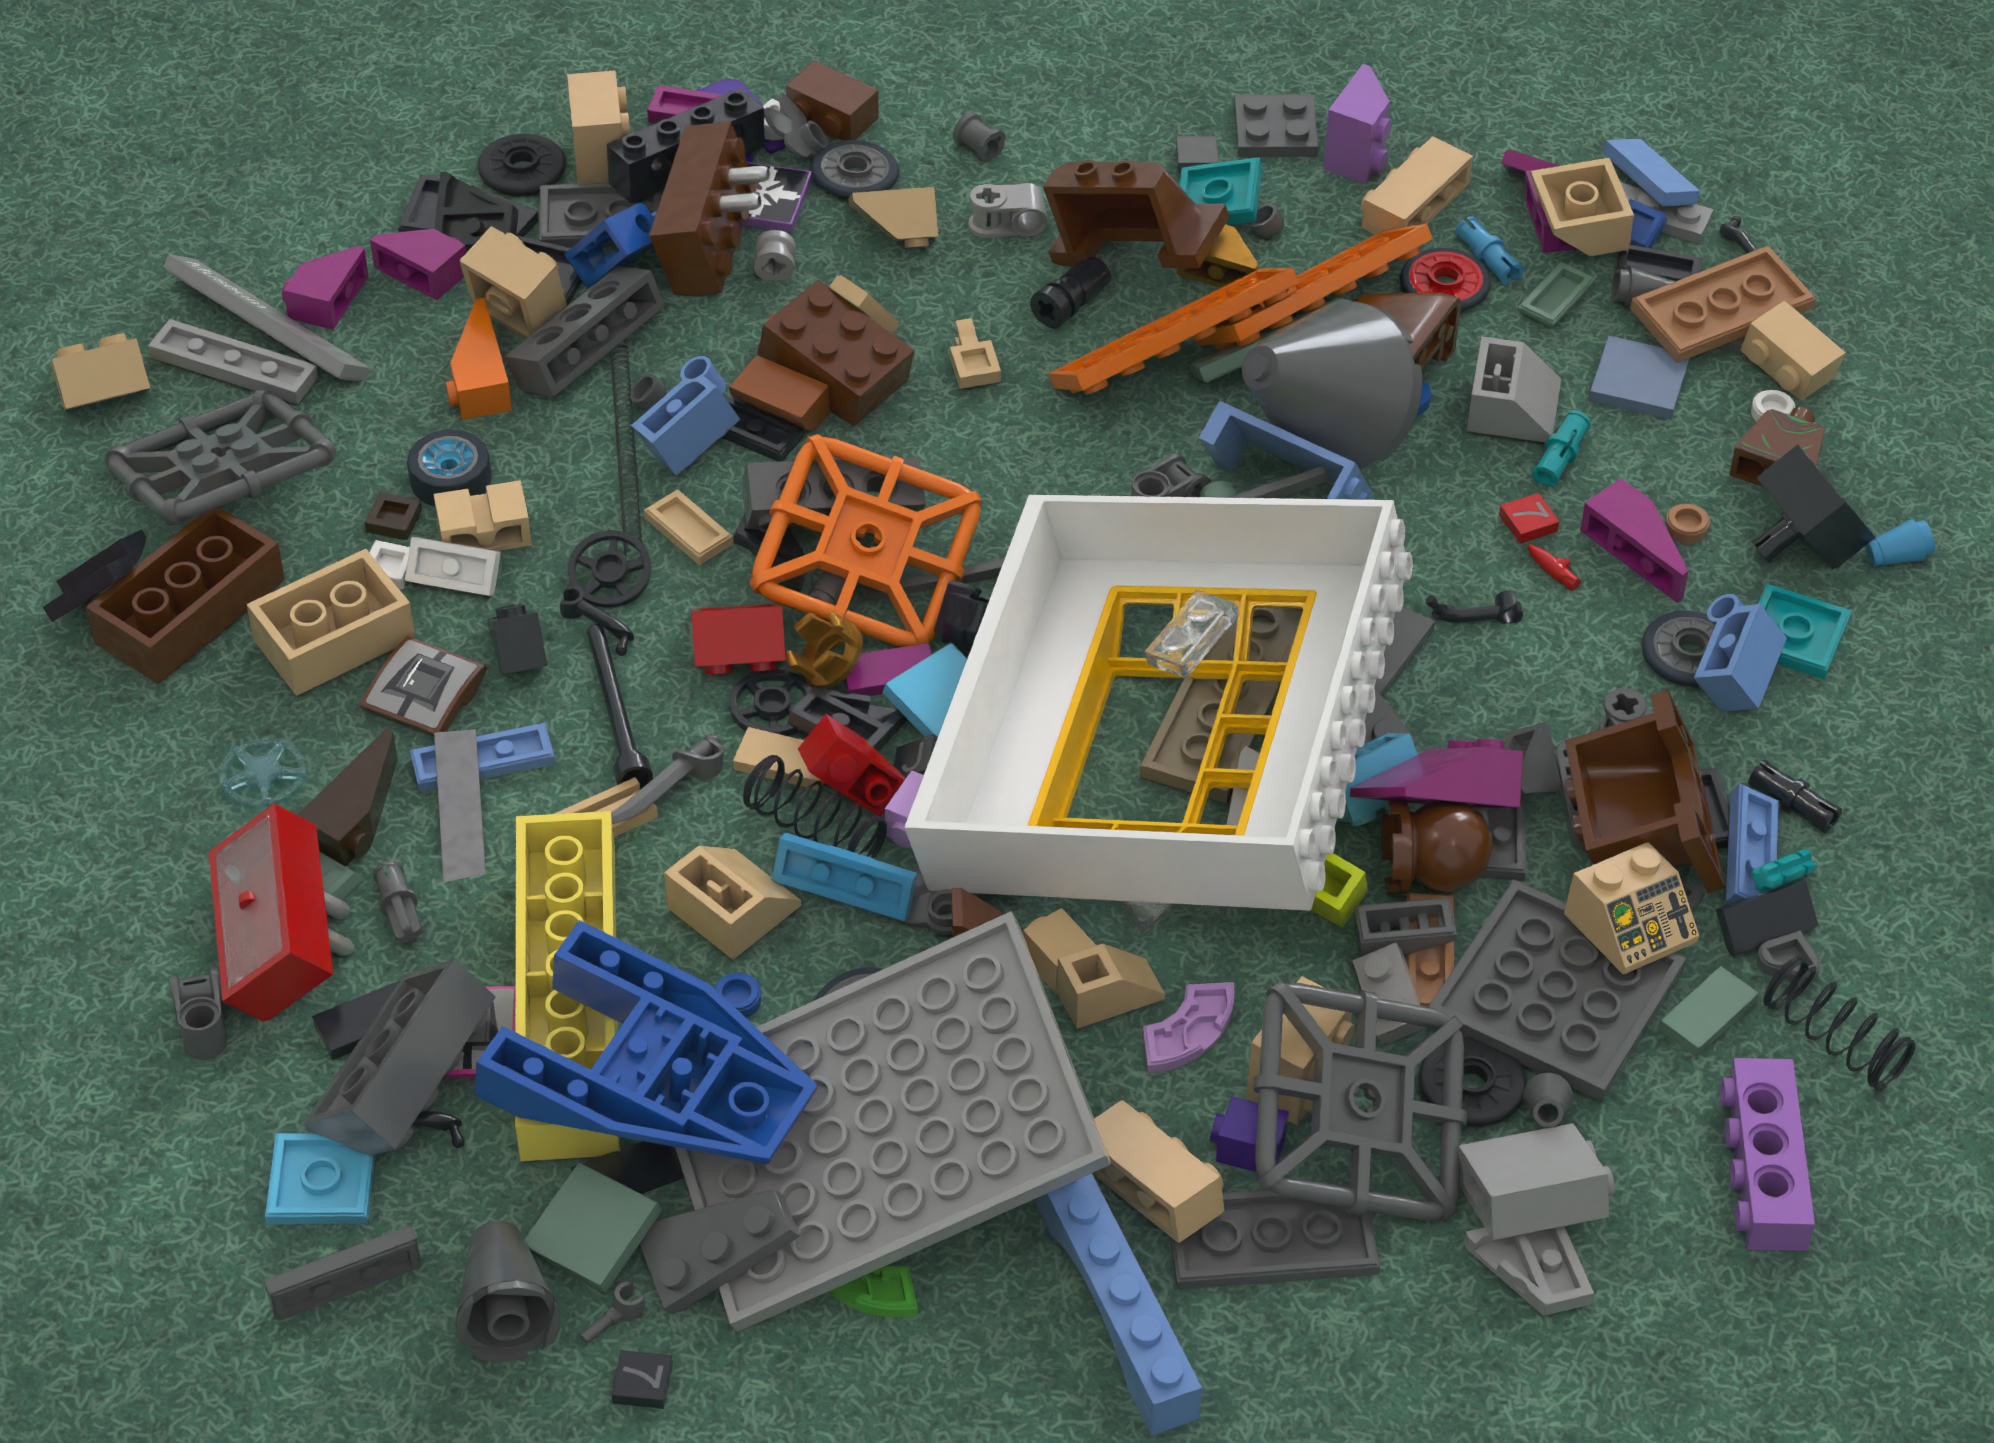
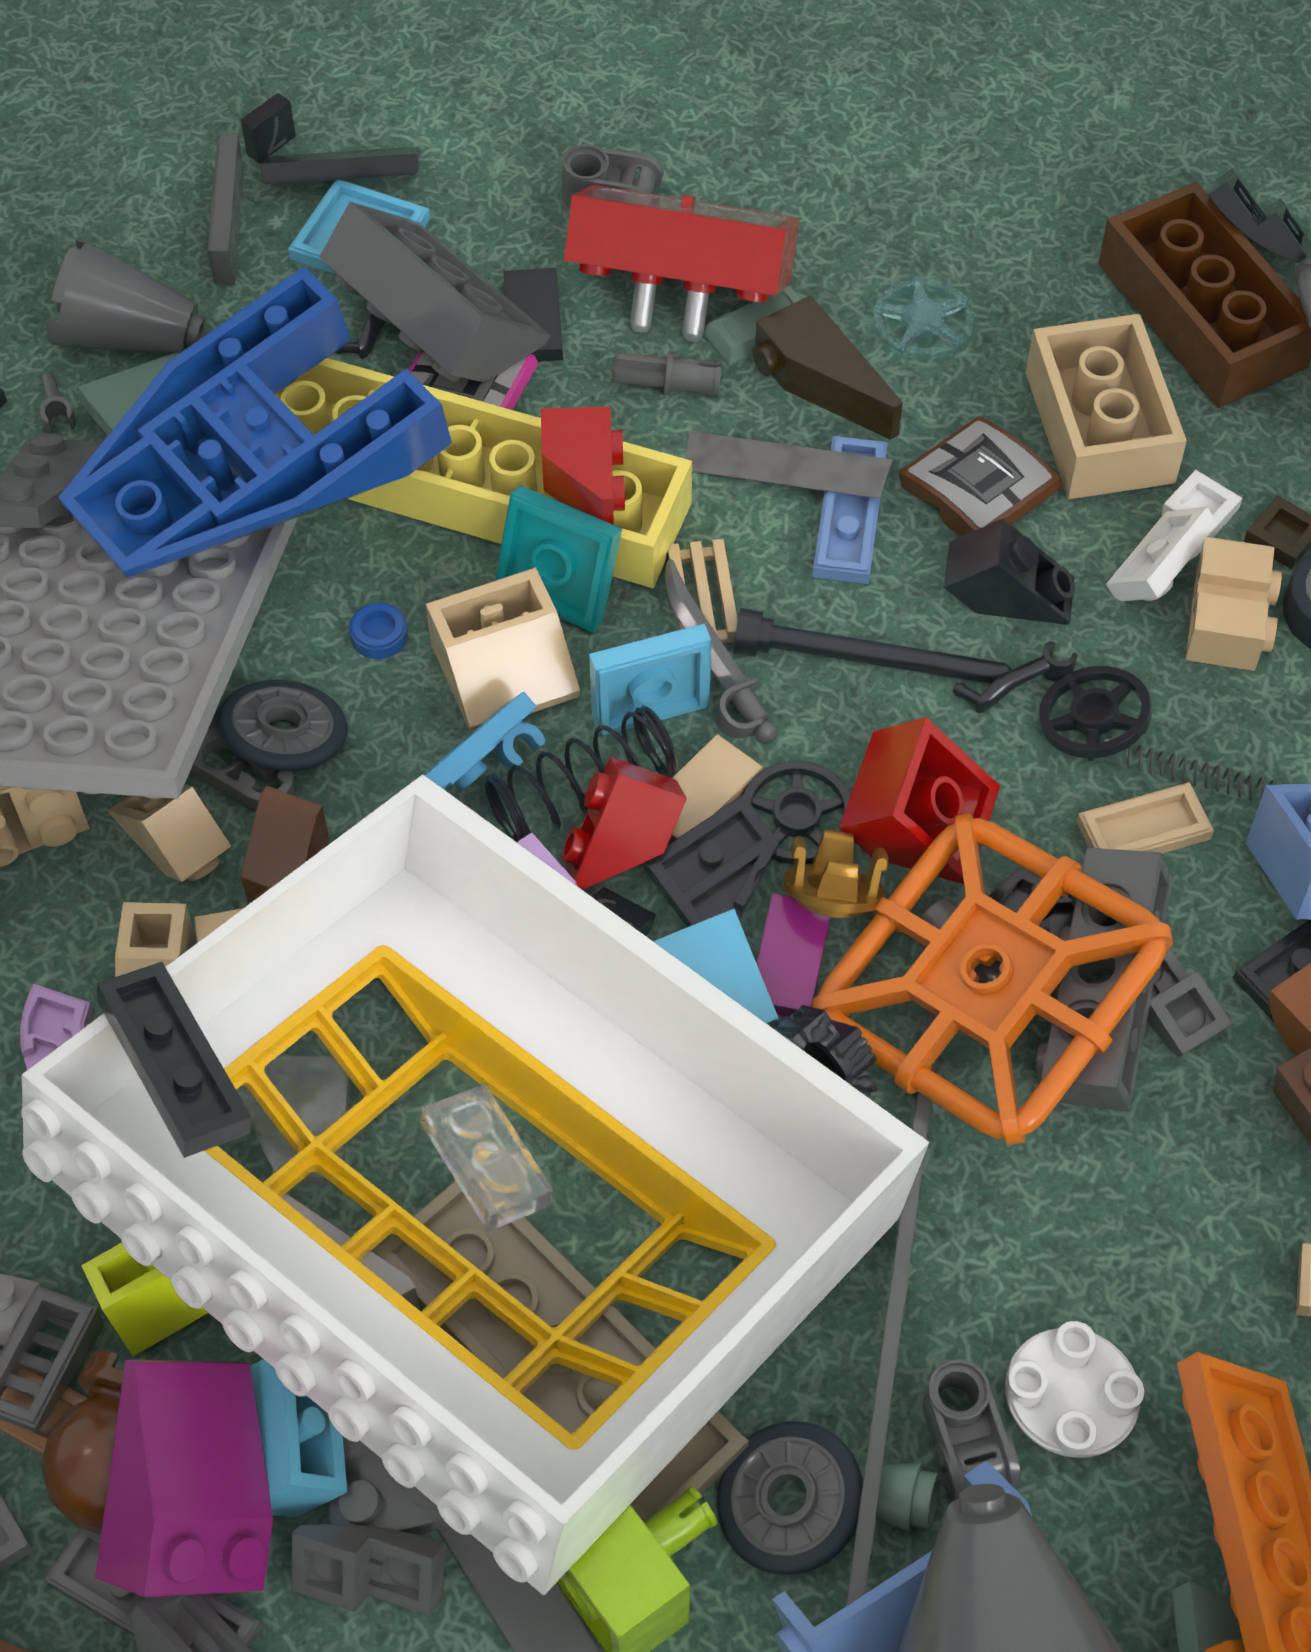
camera: 115 degrees right, 10 degrees up
(228, 1286) = (268, 127): none -> black tile
(250, 1214) = (340, 165): none -> black tile
(567, 857) = (579, 460): none -> red slope
(637, 880) = (568, 550): none -> teal tile
(722, 786) = (659, 672): none -> medium azure tile
(1109, 456) = (1073, 1391): none -> white dish
(1232, 782) = (173, 1059): none -> black plate
(1416, 717) = (354, 1561): none -> dark grey slope

